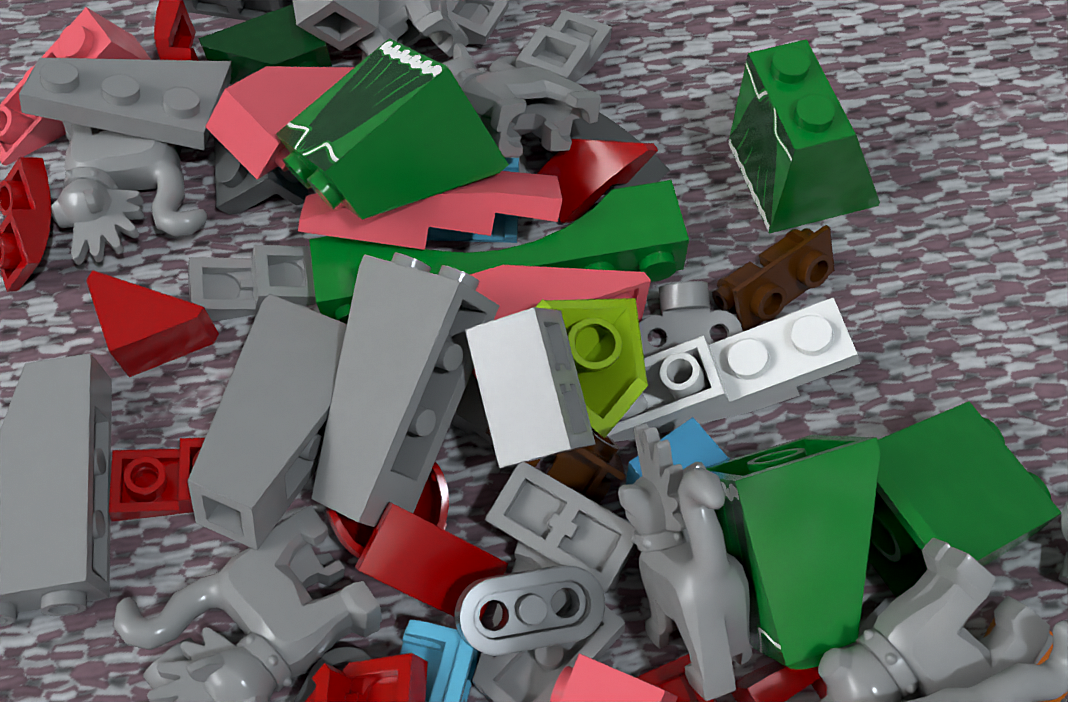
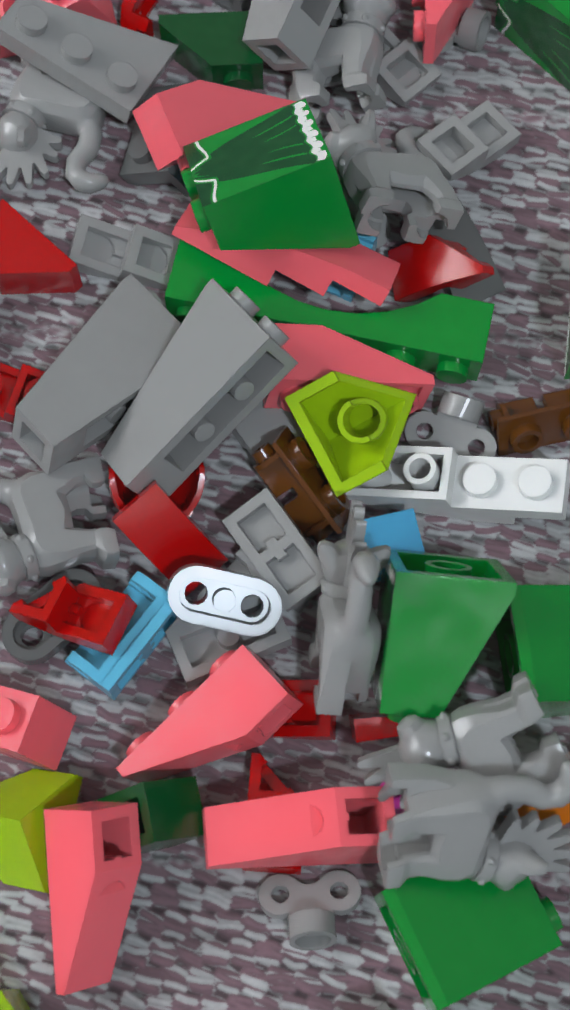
camera: 20 degrees right, 10 degrees up
(529, 386) = (293, 437): hinge -> none

